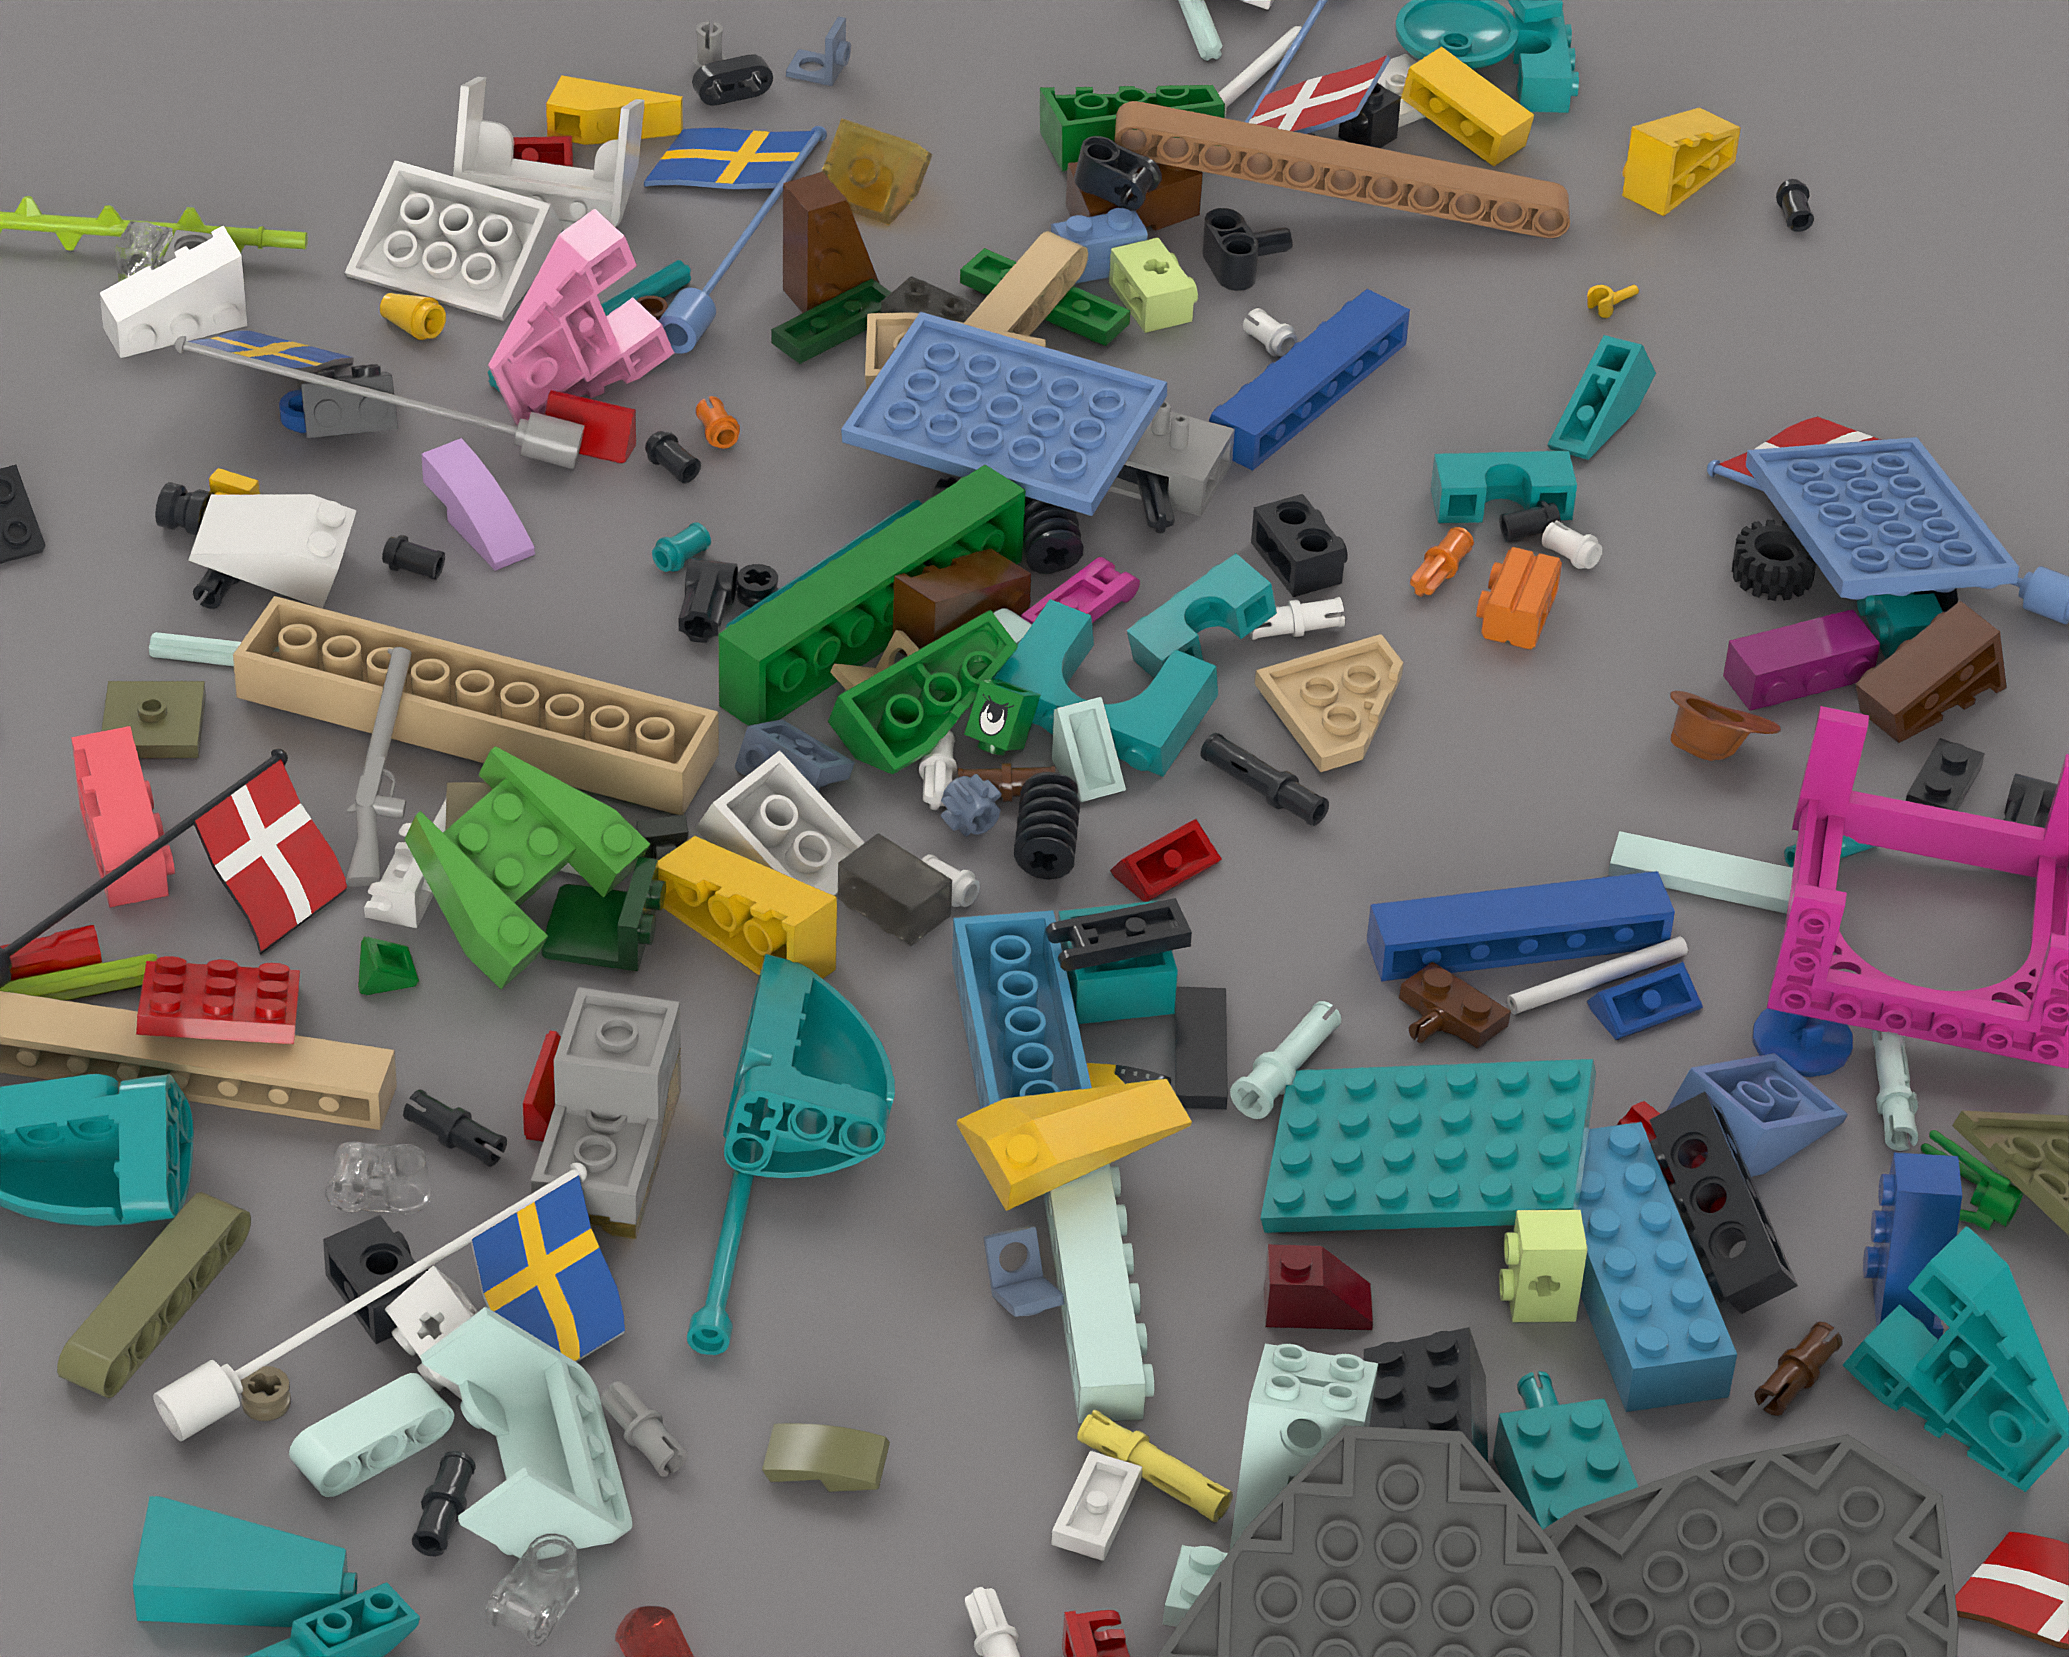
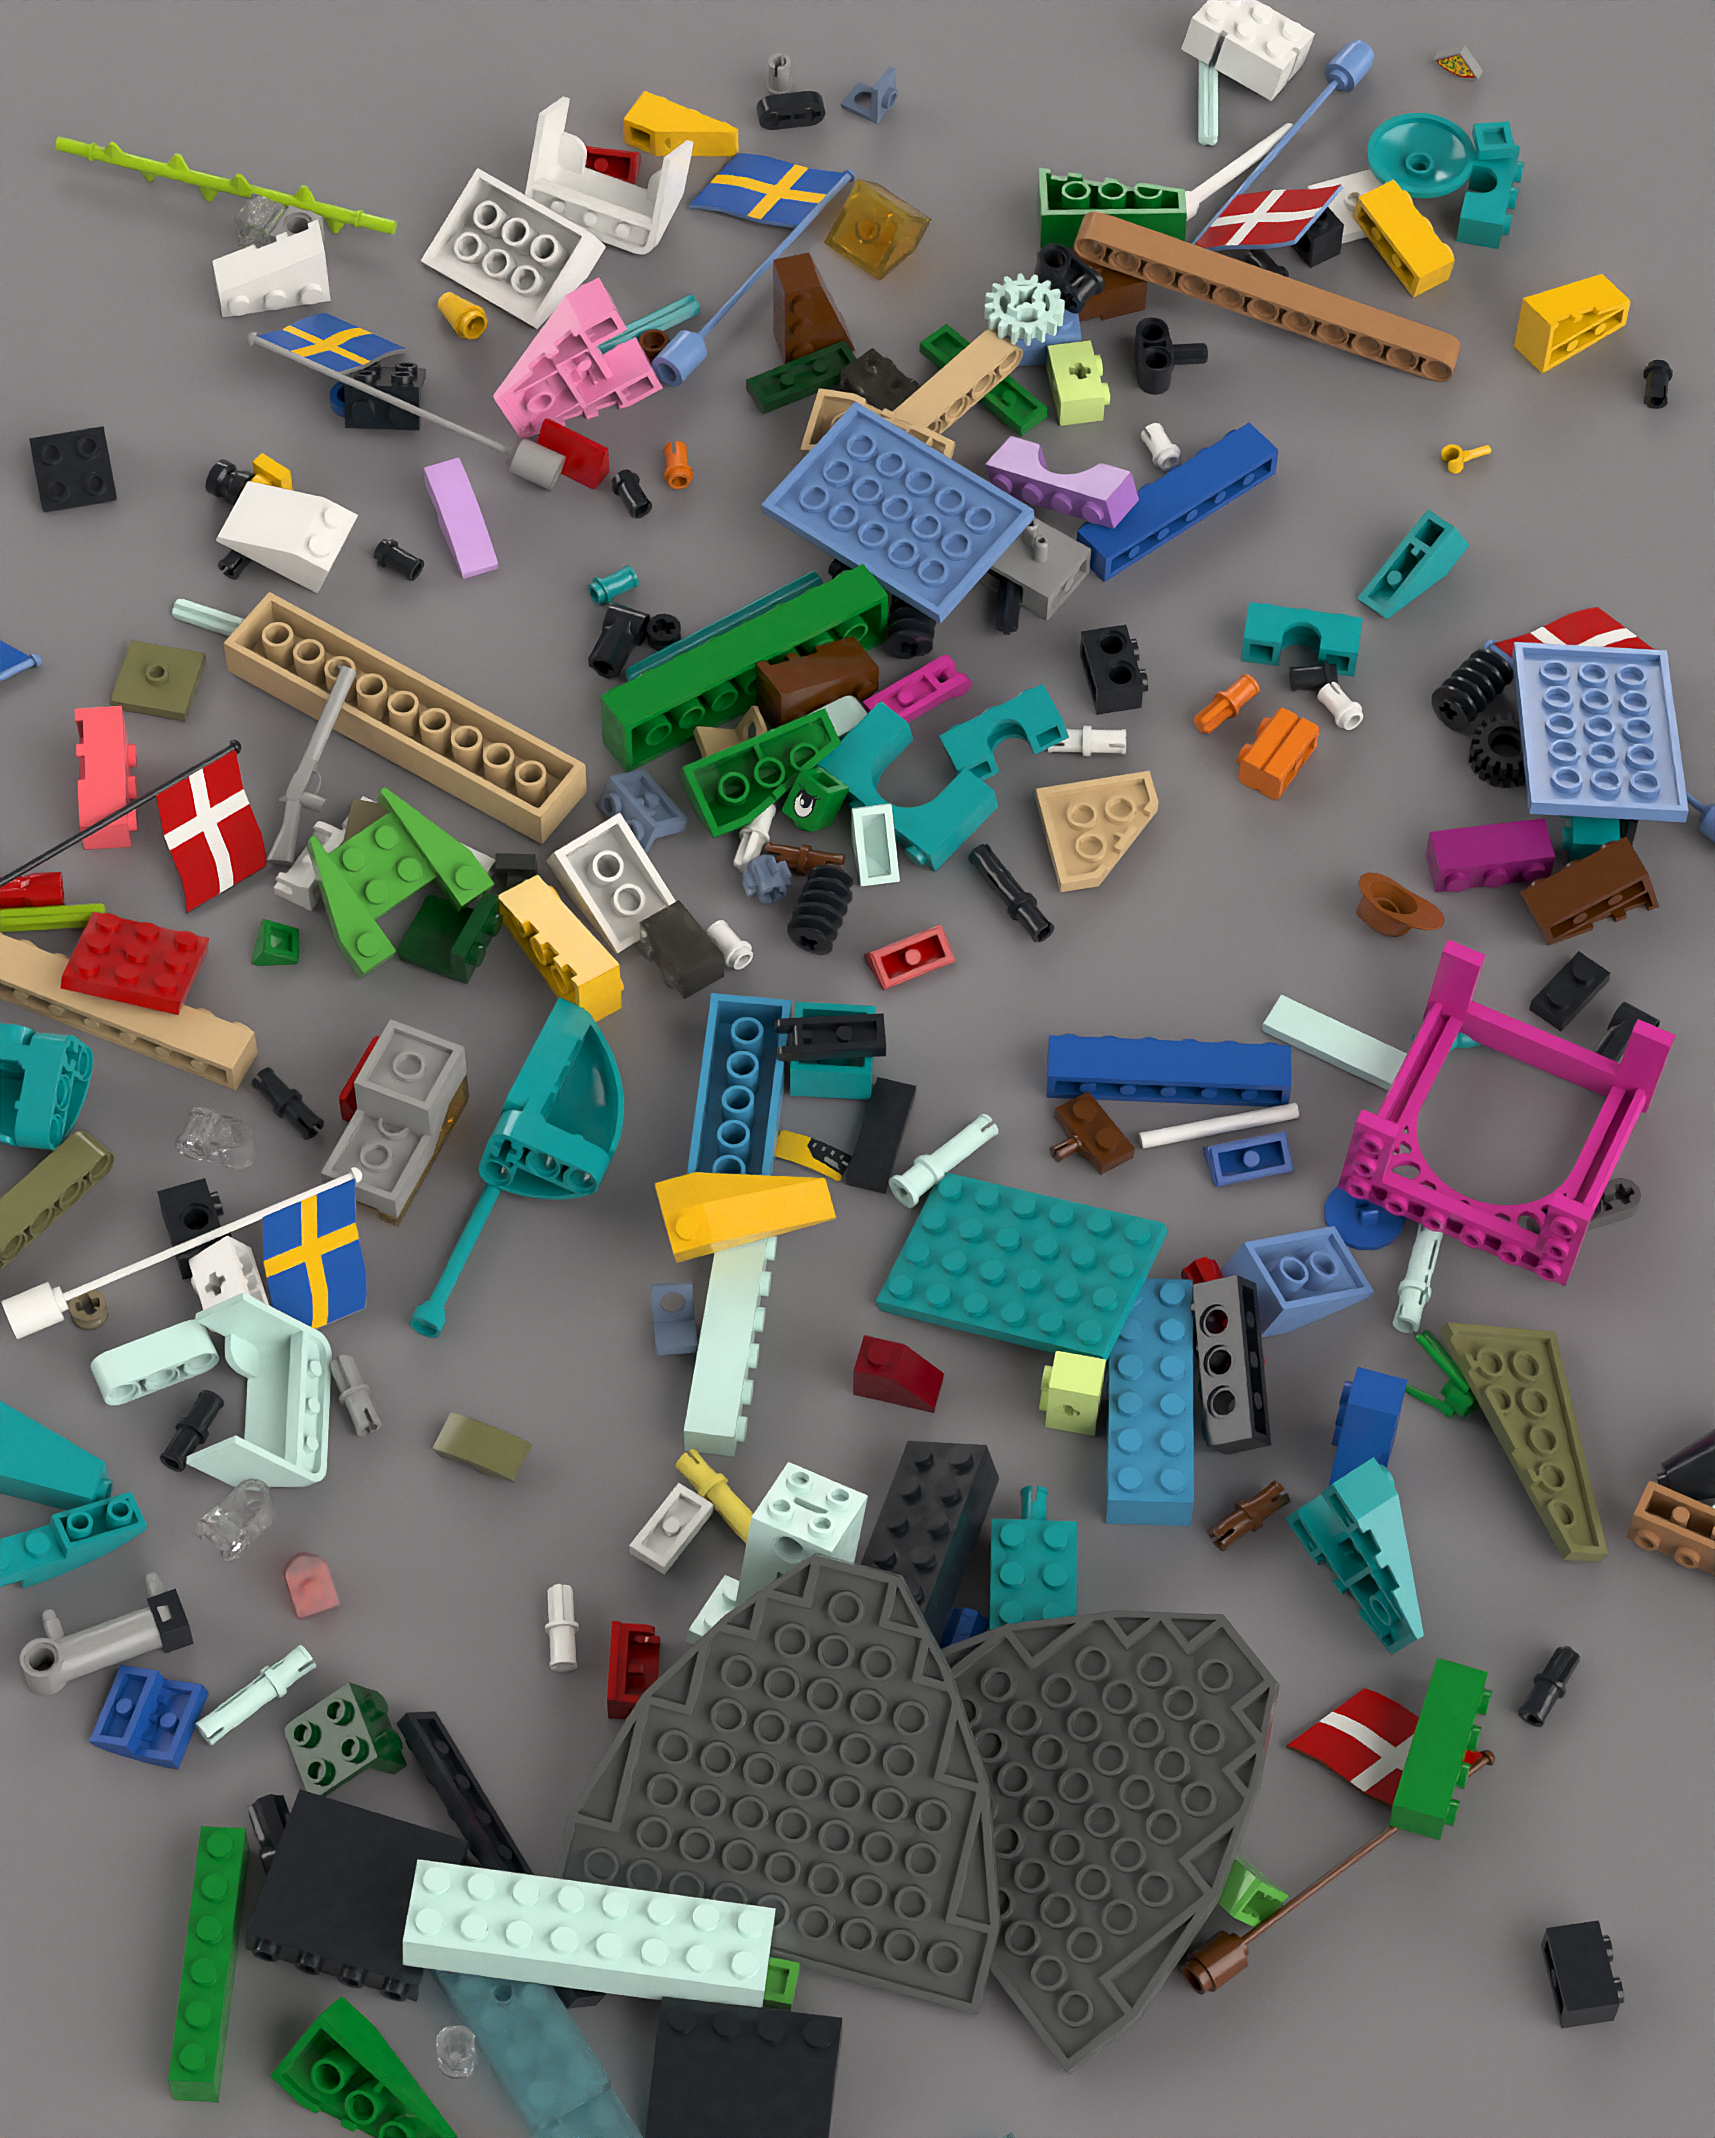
camera: 15 degrees right, 15 degrees up
(1079, 207) = (1024, 309): none -> light aqua gear
(1222, 373) = (1095, 495): none -> medium lavender arch
(1714, 505) = (1471, 688): none -> black piece

